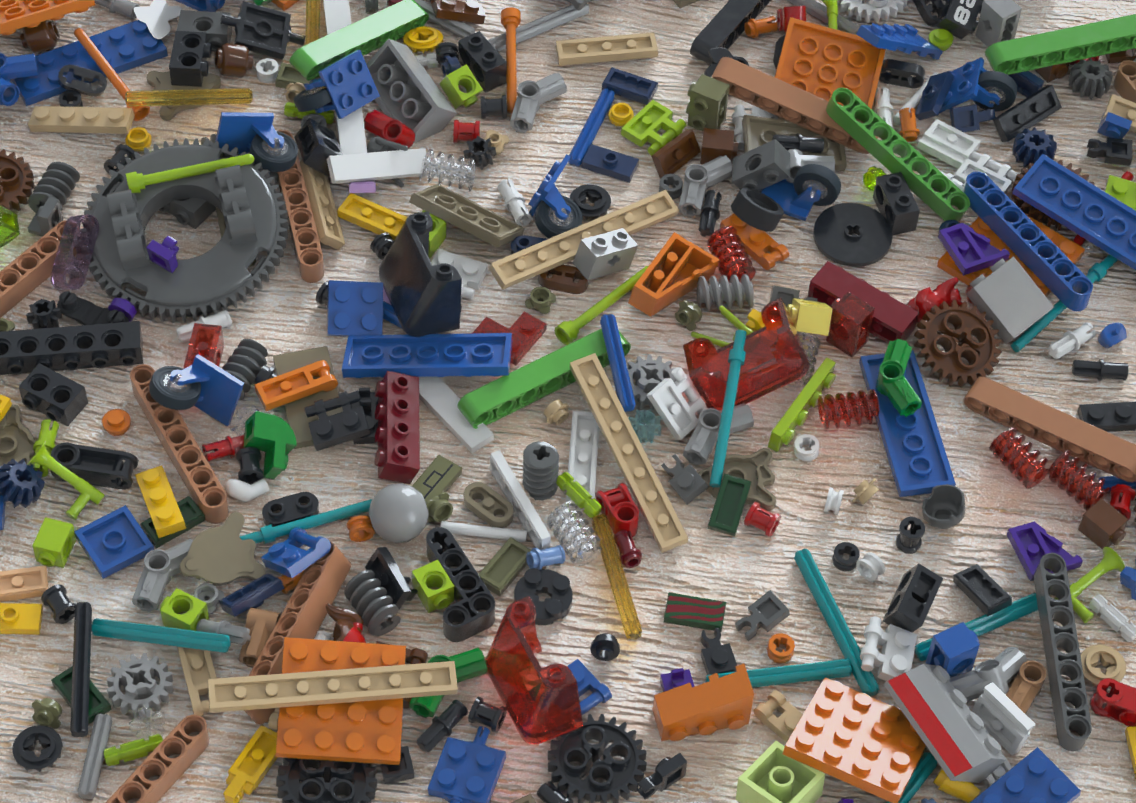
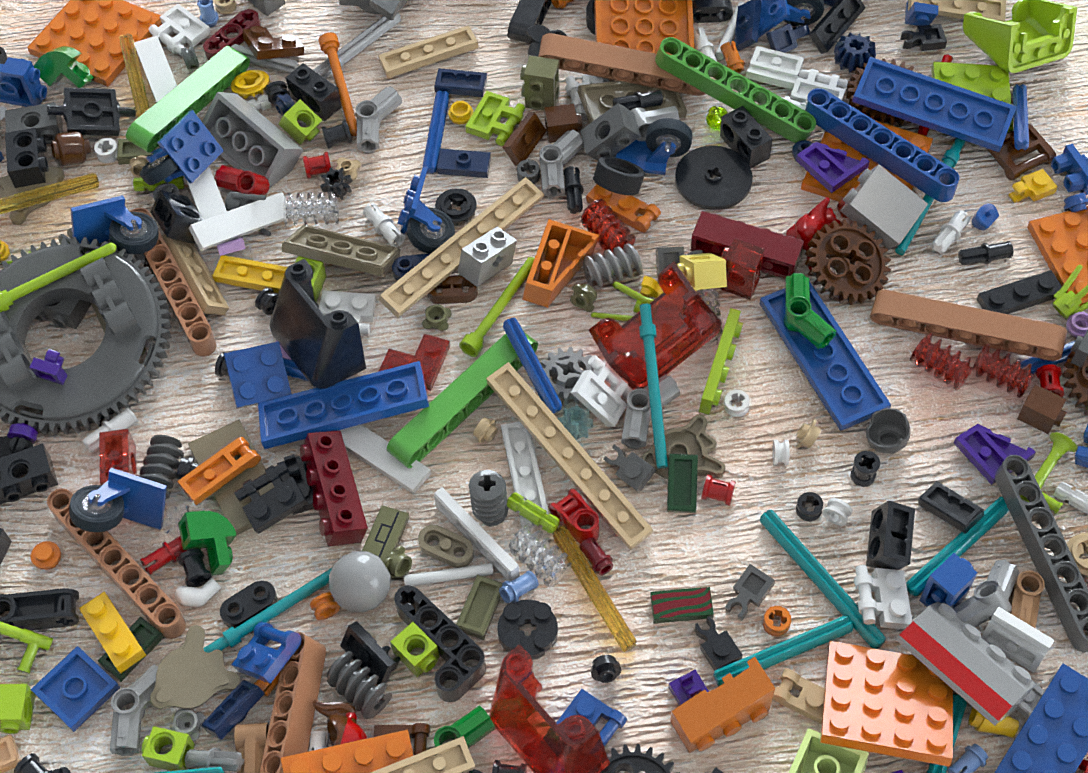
camera: 10 degrees left, 5 degrees up
(848, 408) = (766, 352): clear red piece -> none

